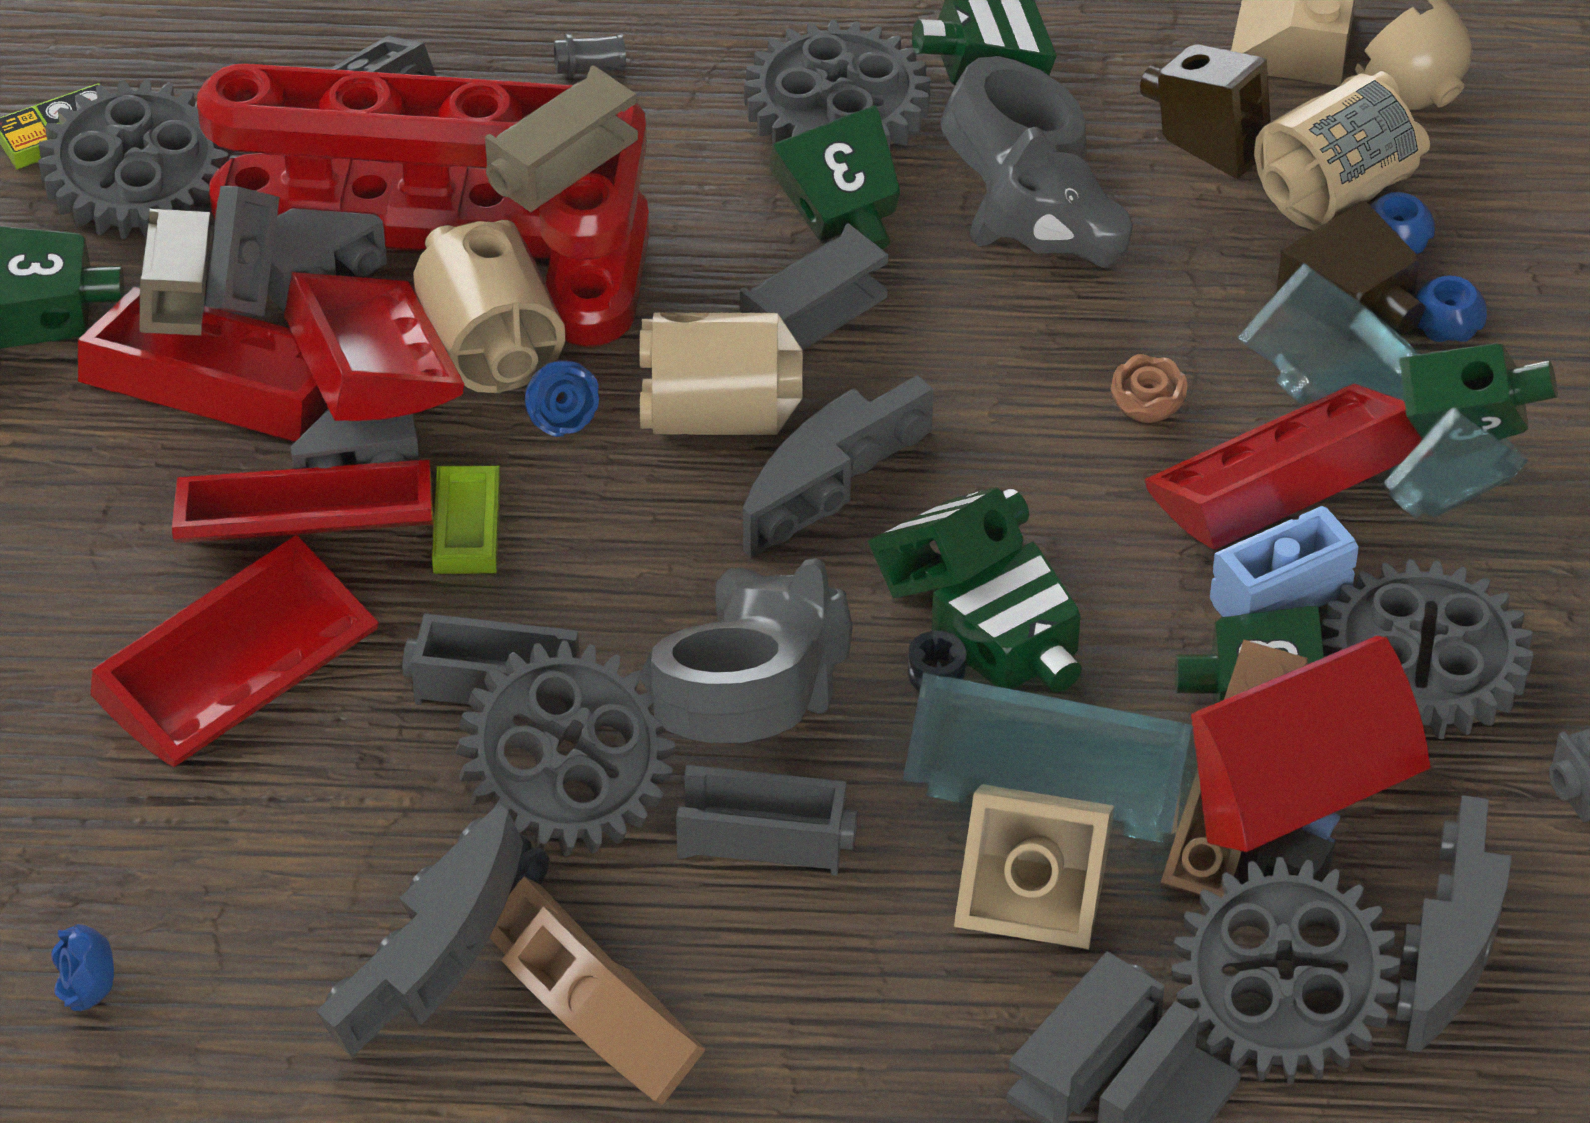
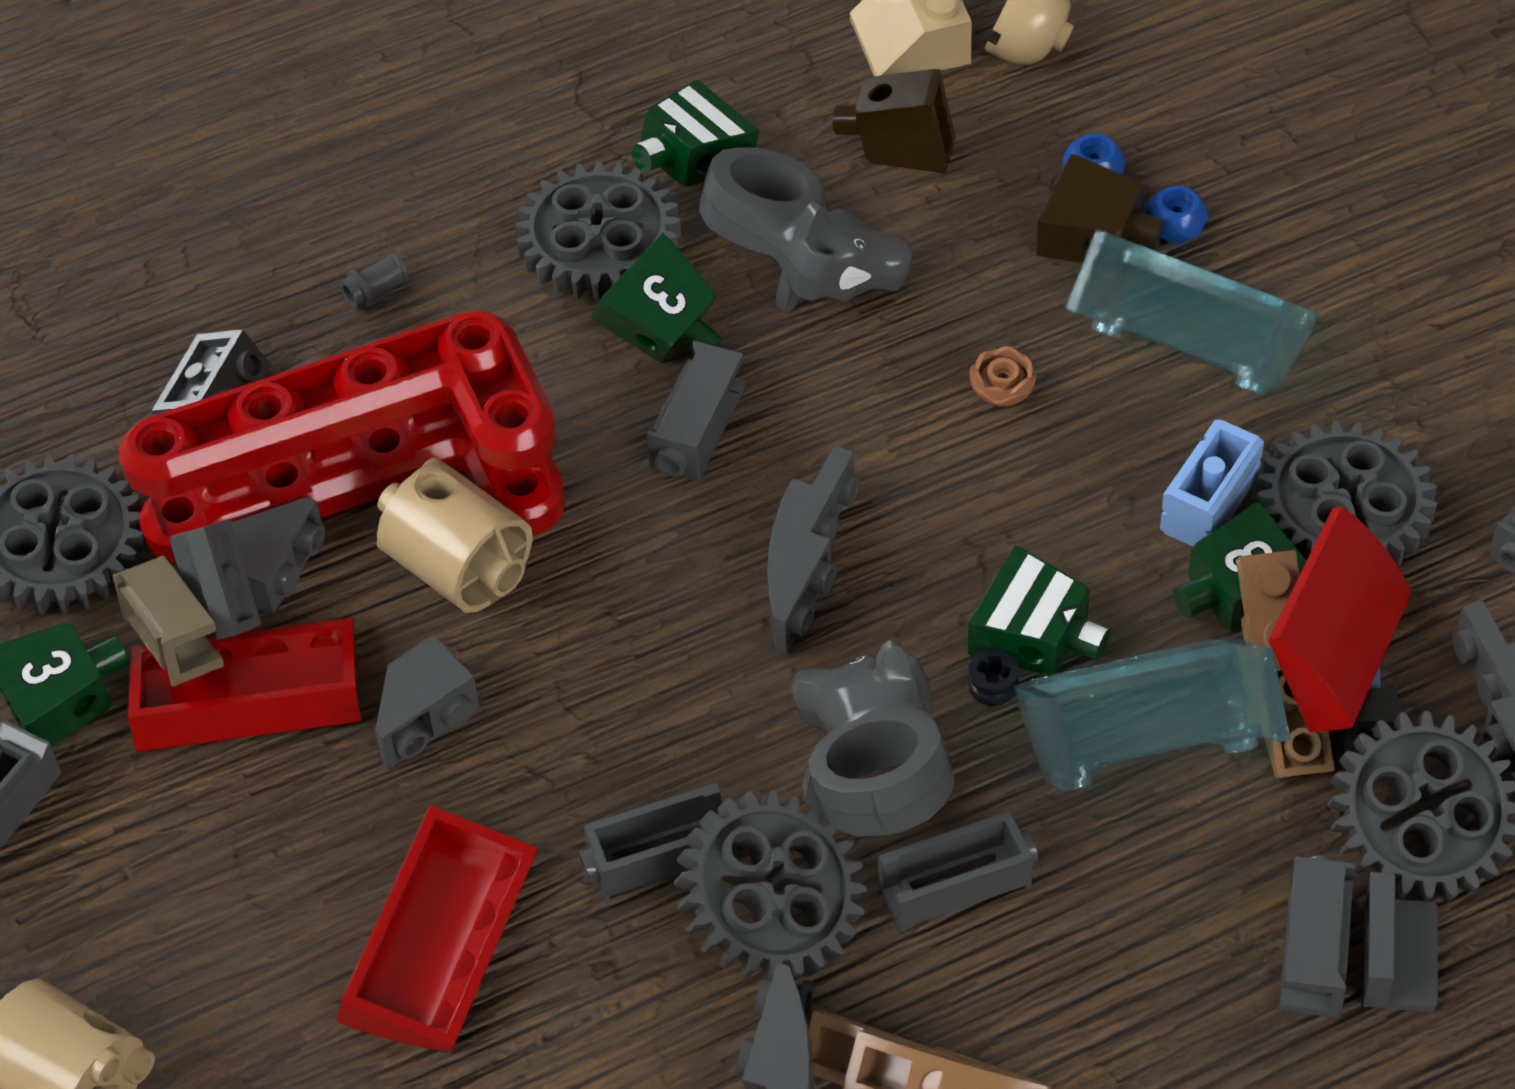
camera: 25 degrees left, 5 degrees up
(303, 501) = (415, 774): red slope -> none
(369, 346) = (381, 615): red slope -> none
(466, 520) = (543, 725): lime tile -> none
(560, 141) = (471, 375): dark tan window -> none
(574, 409) = (556, 587): blue plate -> none
(719, 373) = (676, 513): tan cylinder -> none
(969, 533) = (950, 575): dark green torso -> none
(1033, 866) = (1183, 809): tan slope -> none
(1285, 465) = (1149, 394): red slope -> none
(1339, 149) = (1025, 120): tan cylinder -> none
(1477, 383) = (1255, 291): dark green torso -> none

